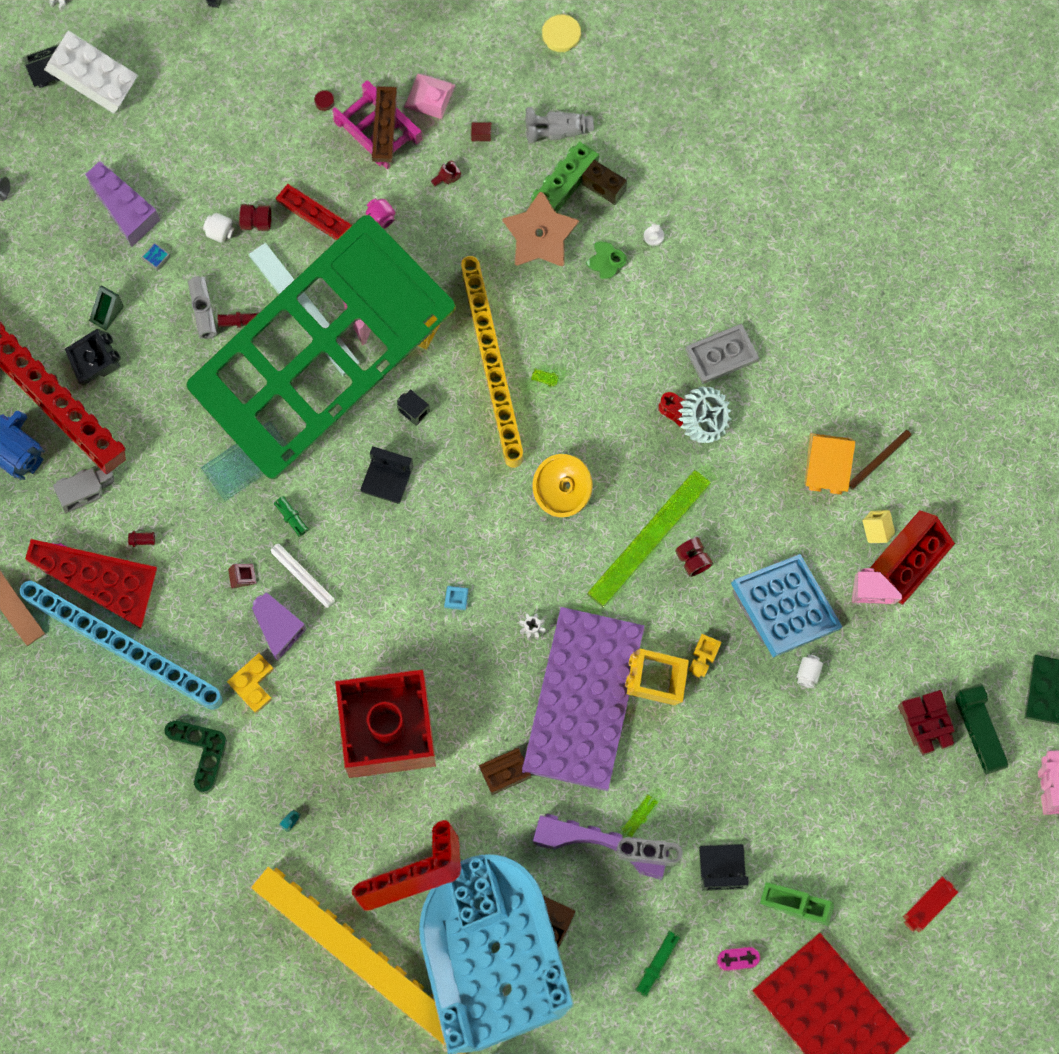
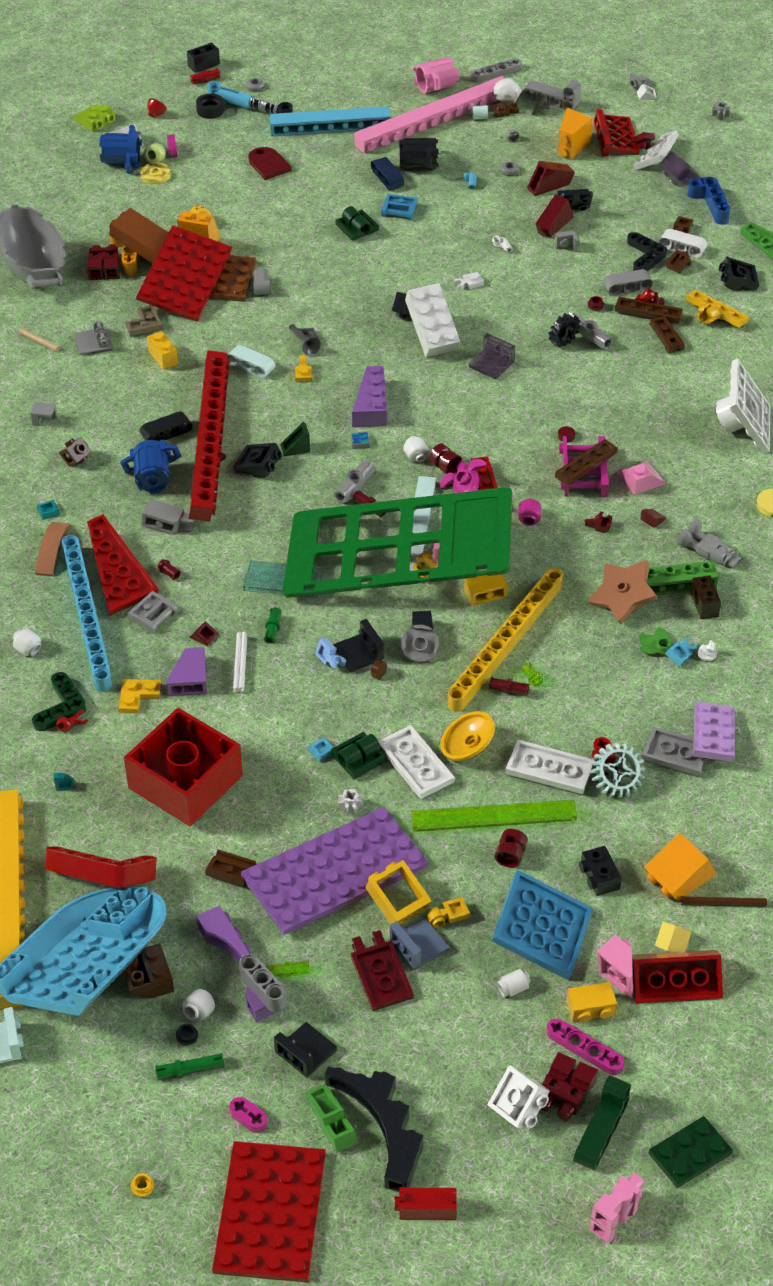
camera: 45 degrees right, 25 degrees down
(23, 223) = (303, 372): none -> yellow plate
(105, 721) = (26, 642): none -> white head
(168, 593) = (148, 608): none -> light grey plate
(179, 67) = (494, 358): none -> clear purple bracket
(228, 765) = (68, 722): none -> red arm
(296, 226) = (466, 478): none -> dark pink animal
(357, 347) = (424, 562): none -> yellow bracket
(367, 504) = (326, 653): none -> light blue plate
(422, 482) = (378, 669): none -> reddish brown tile
(432, 428) = (420, 644): none -> light grey tile
(492, 577) = (359, 754): none -> dark green plate
(539, 405) = (509, 686): none -> dark red pin
(541, 543) = (416, 762): none -> white plate
(611, 910) = (198, 1005): none -> white head
(626, 940) = (186, 1034): none -> black plate
(634, 254) = (680, 651): none -> medium azure plate
(645, 454) = (549, 766): none -> white plate
(707, 752) = (380, 972): none -> dark red tile
(709, 701) = (418, 942): none -> sand blue bracket
(734, 311) = (714, 731): none -> lavender plate
(774, 516) = (600, 871): none -> black brick
(871, 879) = (392, 1117): none -> black arch
(877, 635) = (591, 1002): none -> yellow brick
(904, 671) = (583, 1048): none -> dark pink beam
(912, 765) = (519, 1098): none -> white plate

